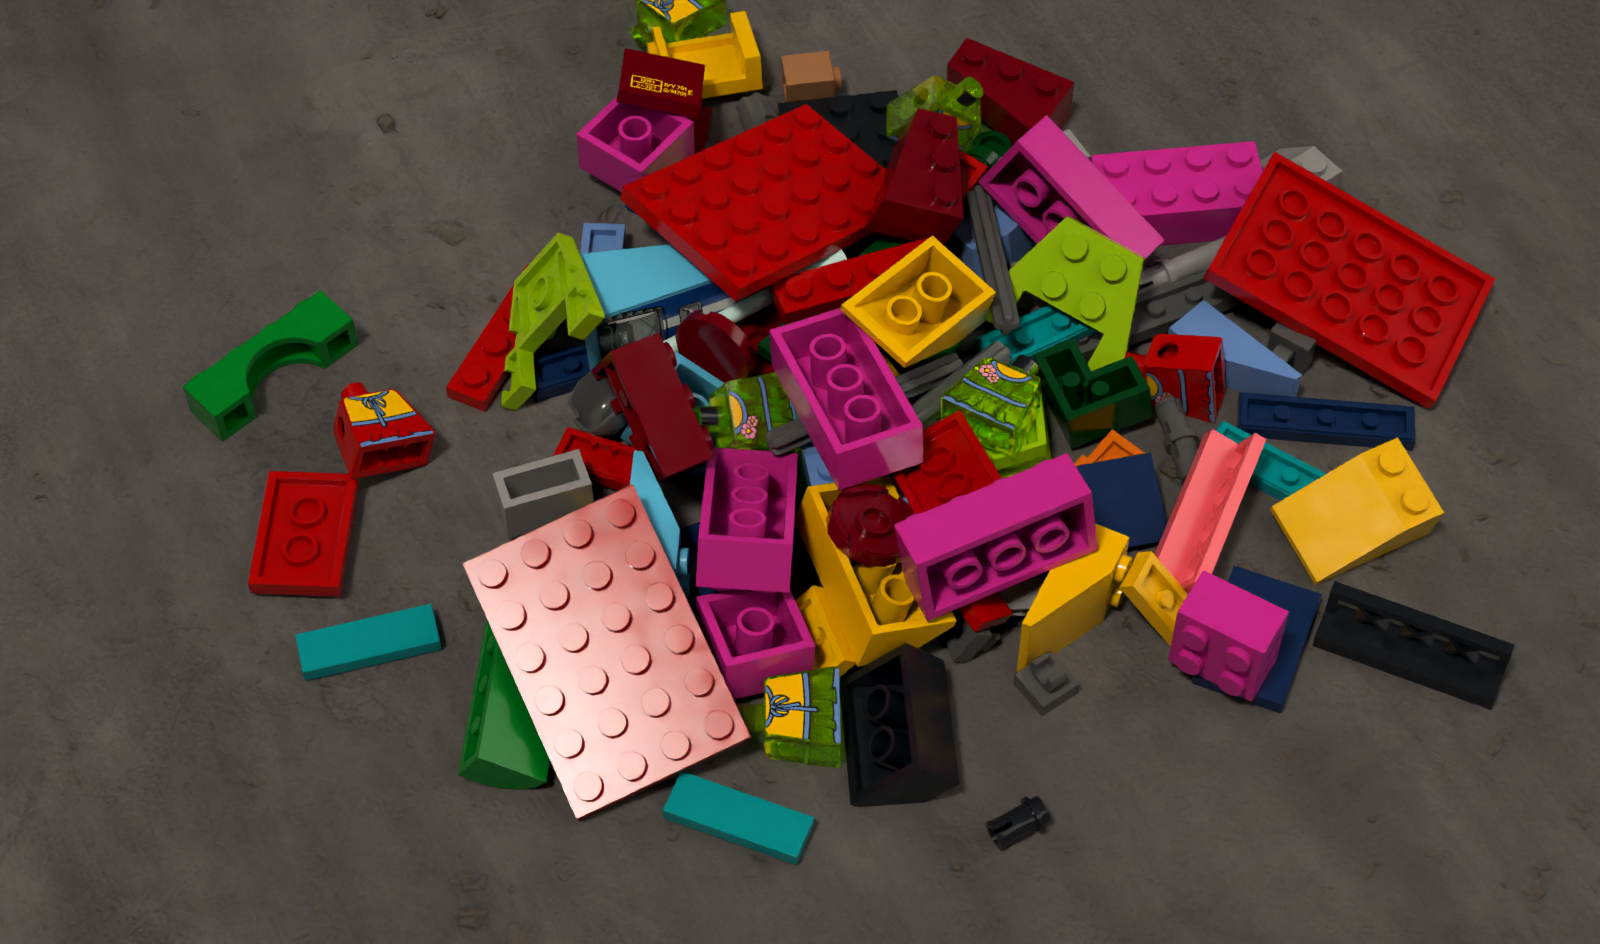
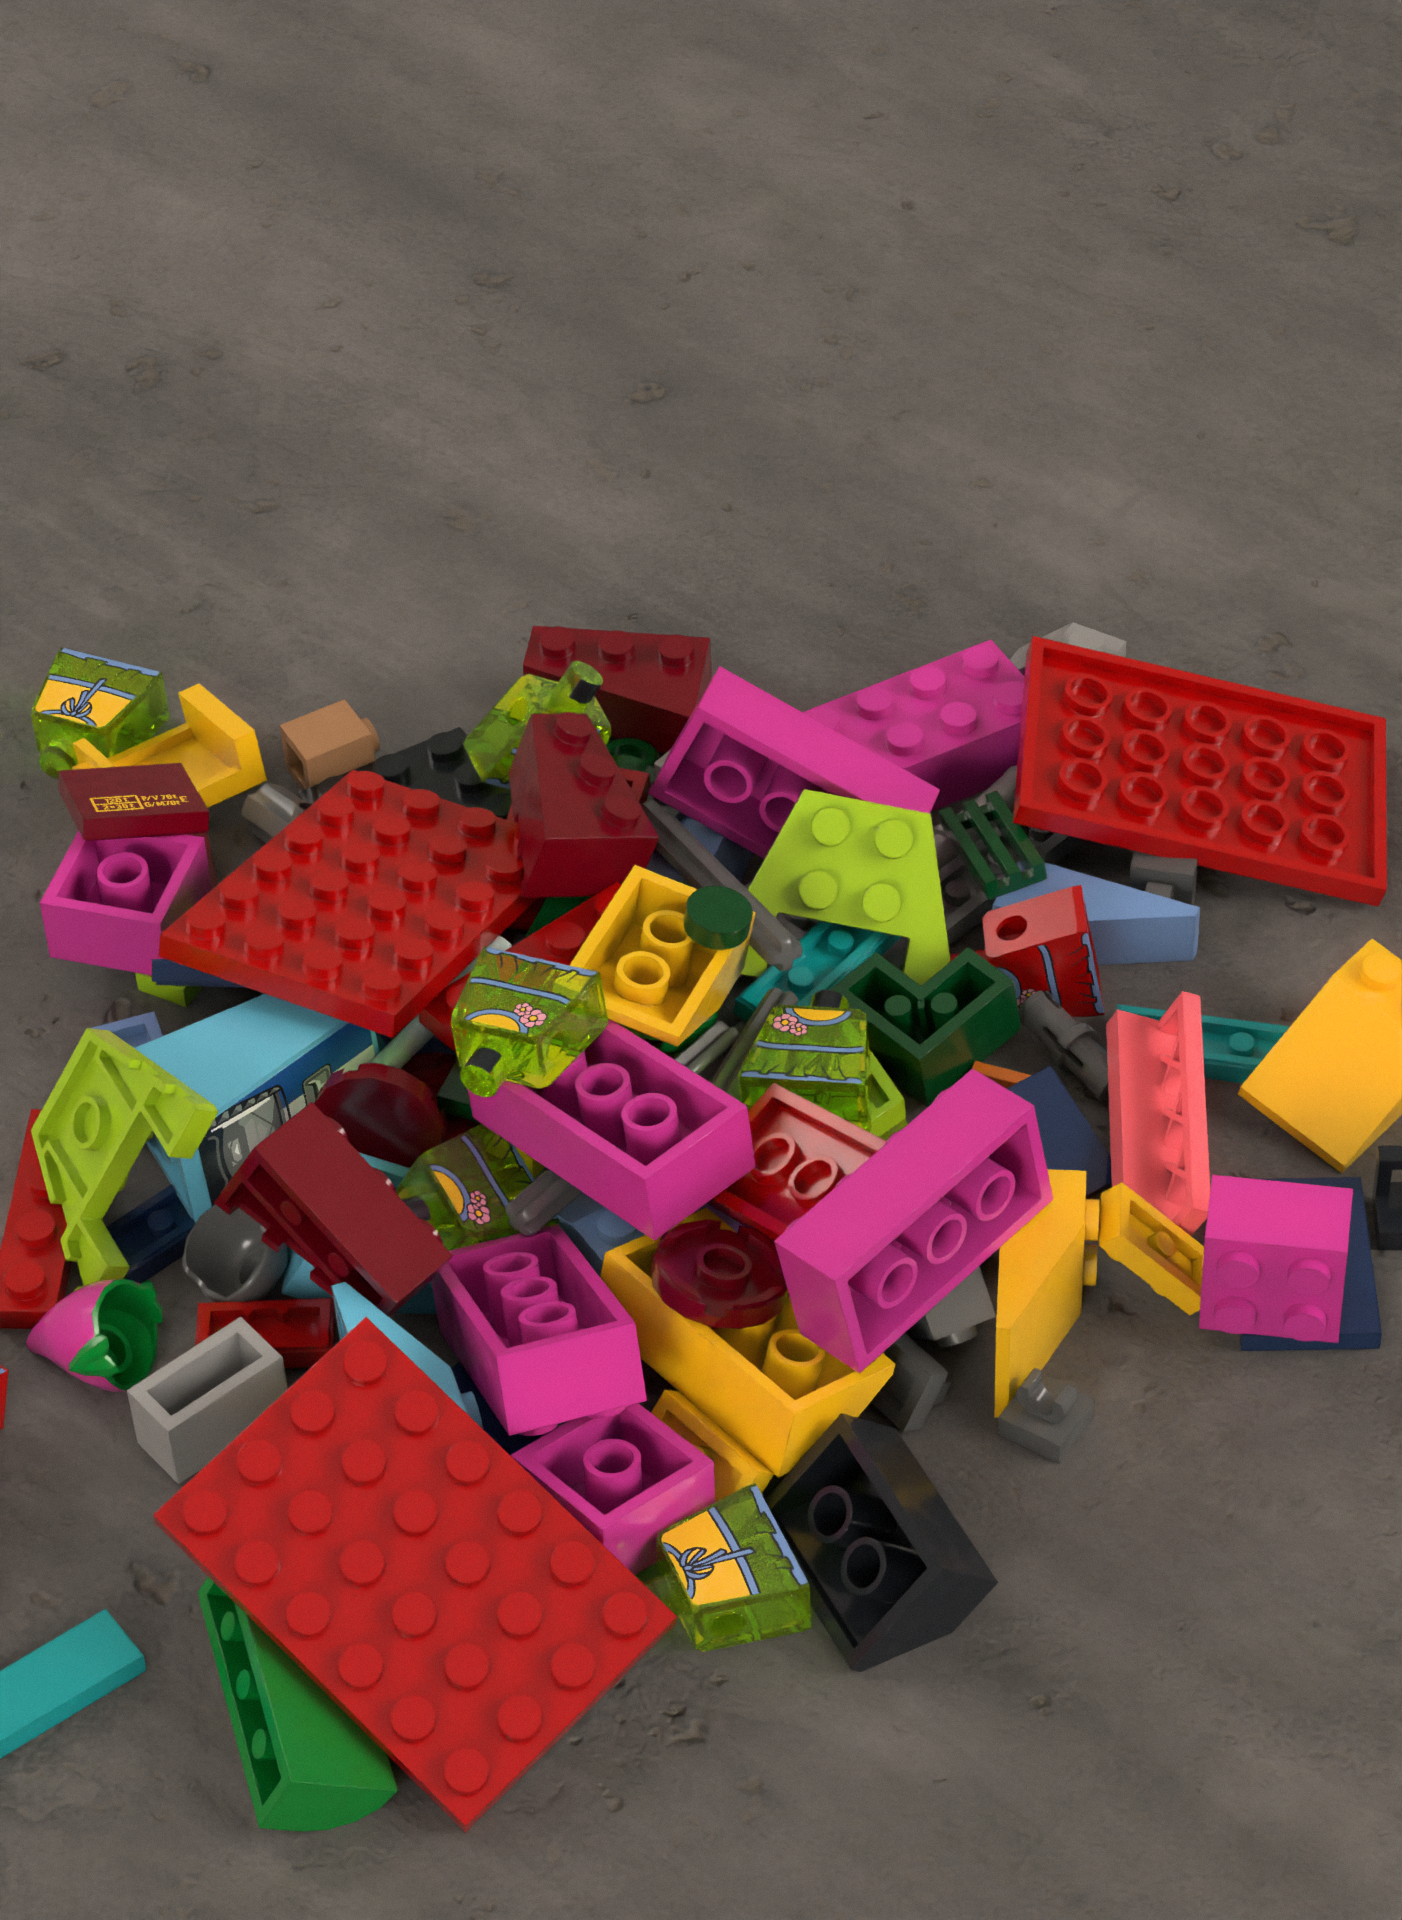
camera: 20 degrees left, 10 degrees down
(503, 428) = (102, 1333): none -> green hat
(738, 817) = (700, 1743): teal tile -> none
(811, 321) = (524, 1020): none -> clear neon green torso
(966, 289) = (717, 917): none -> dark green tile
(986, 612) = (927, 1342): red tile -> none
(1019, 821) = (1112, 1592): black pin -> none
(1186, 263) = (979, 818): none -> dark green tile
(1325, 420) = (1248, 962): dark blue tile -> none

